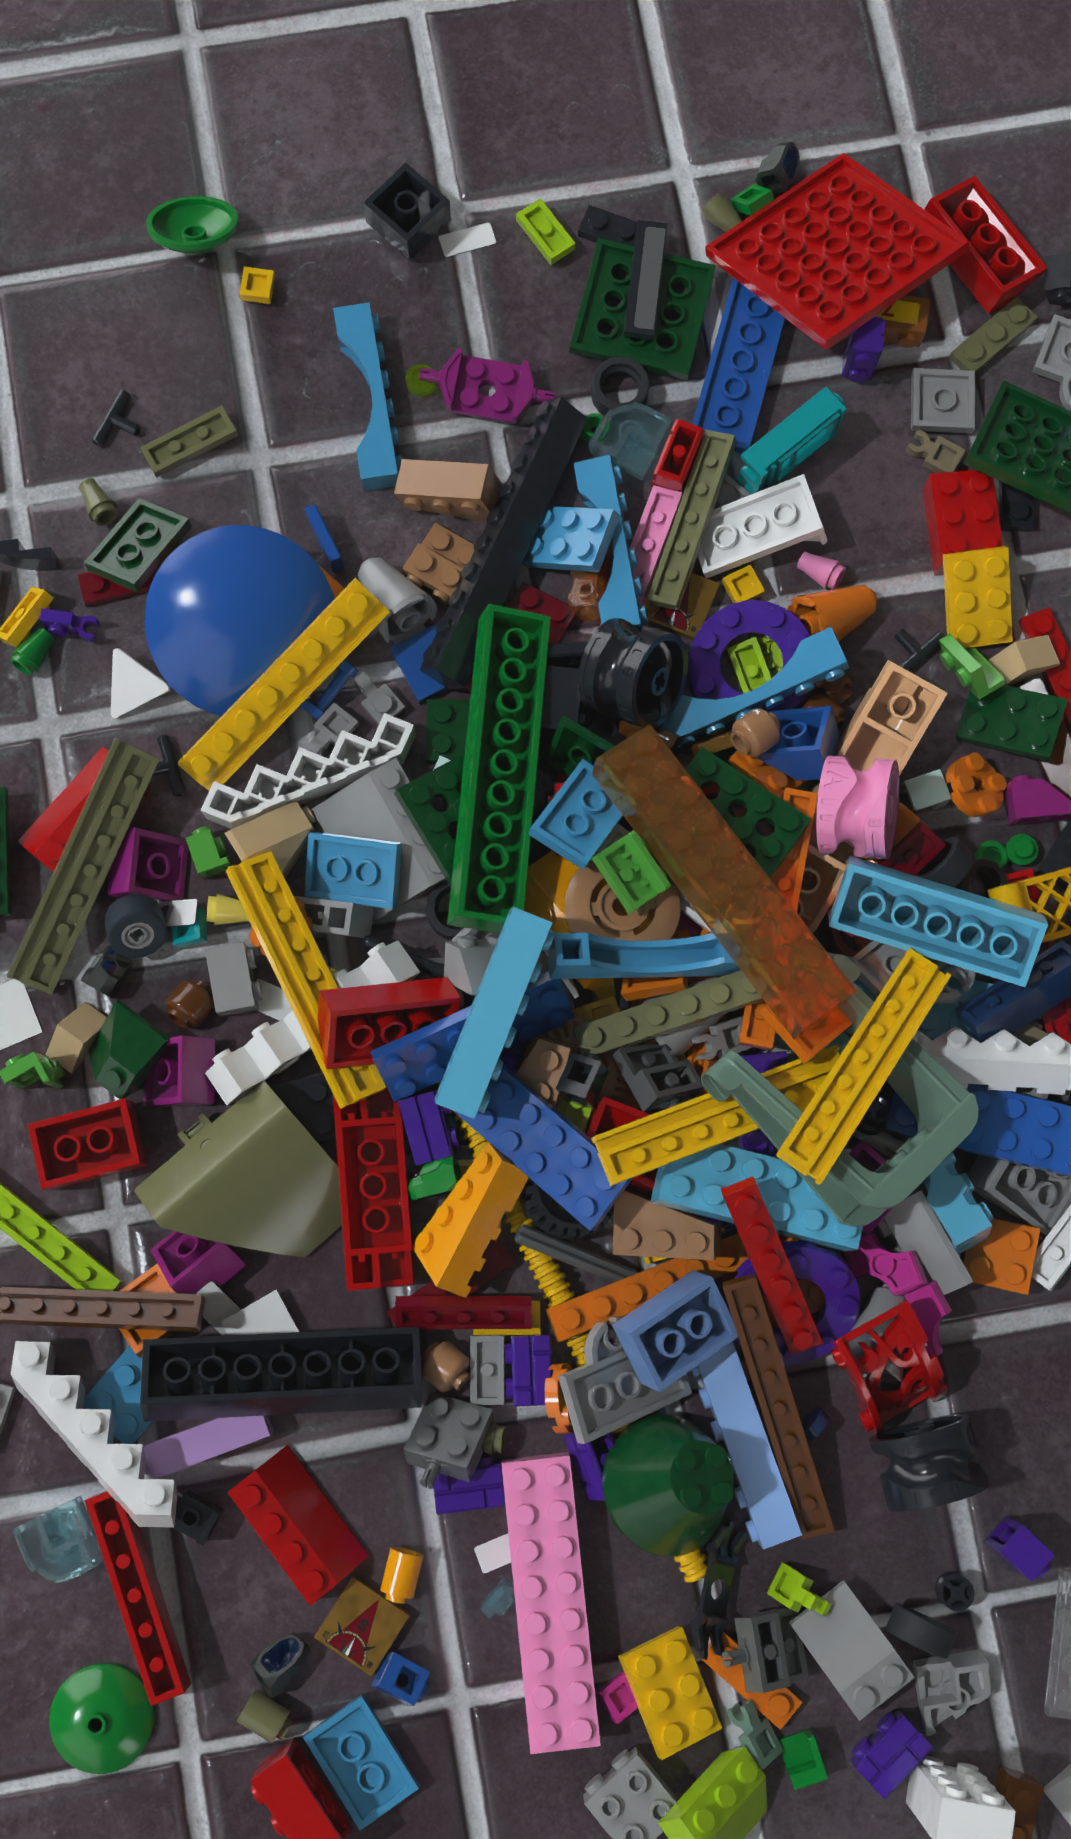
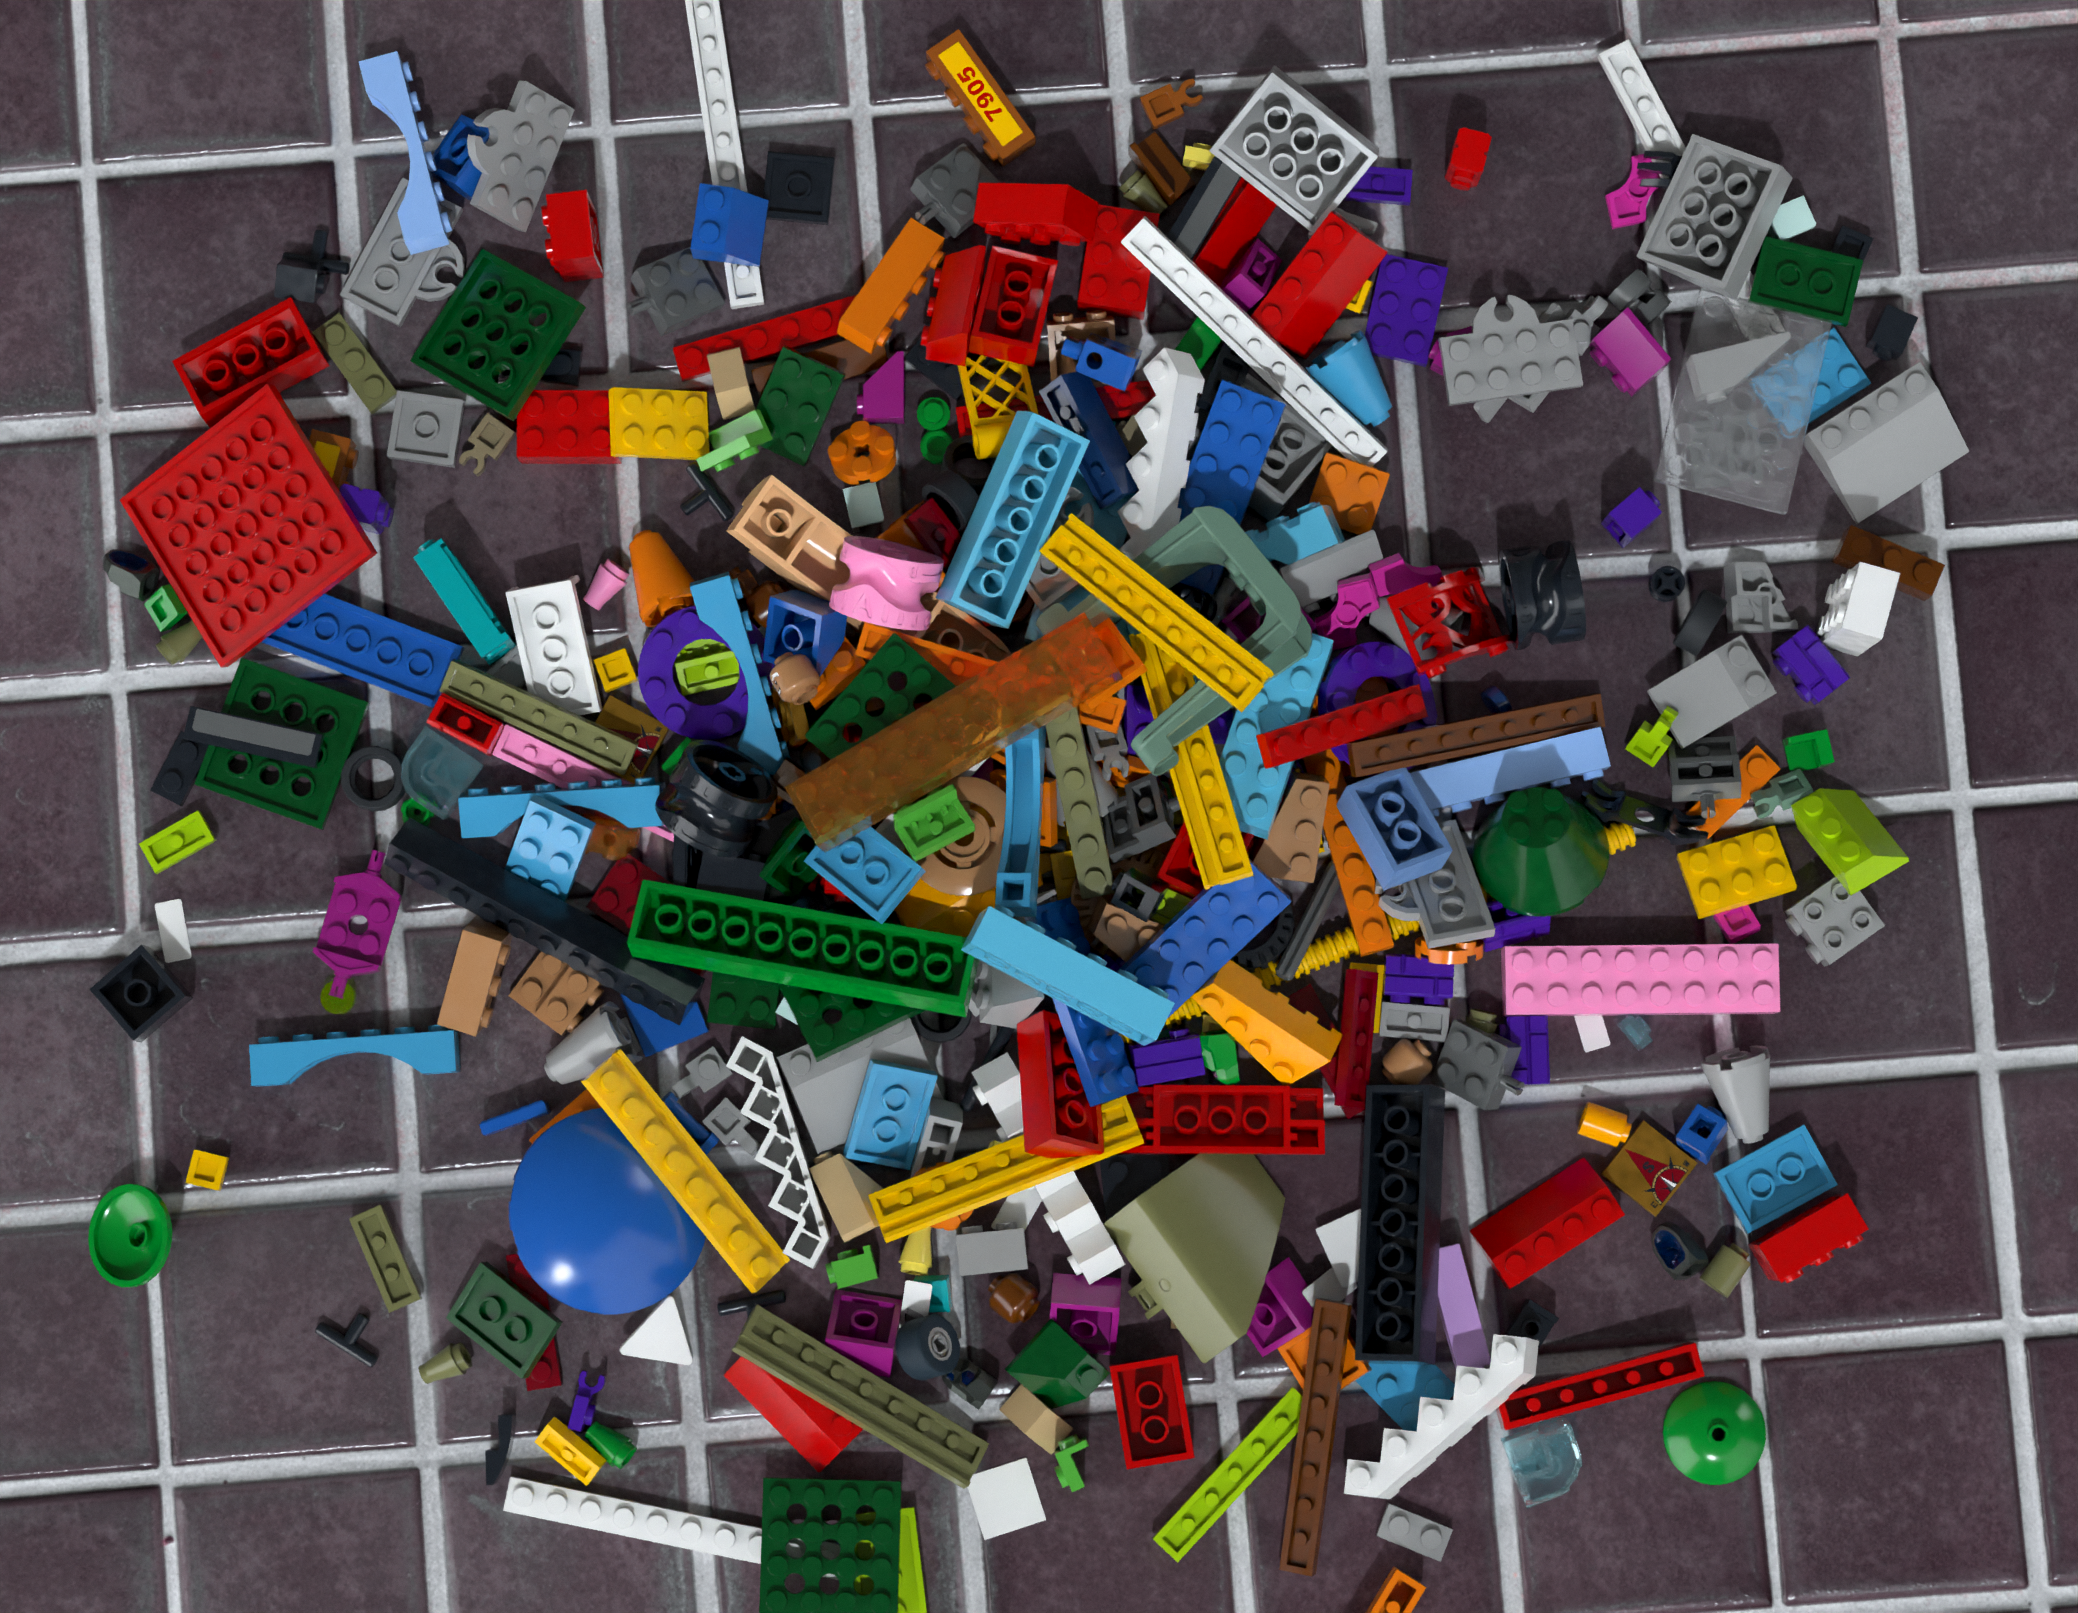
camera: 80 degrees left, 5 degrees up
(449, 1718) = (1742, 1089): none -> light grey cone

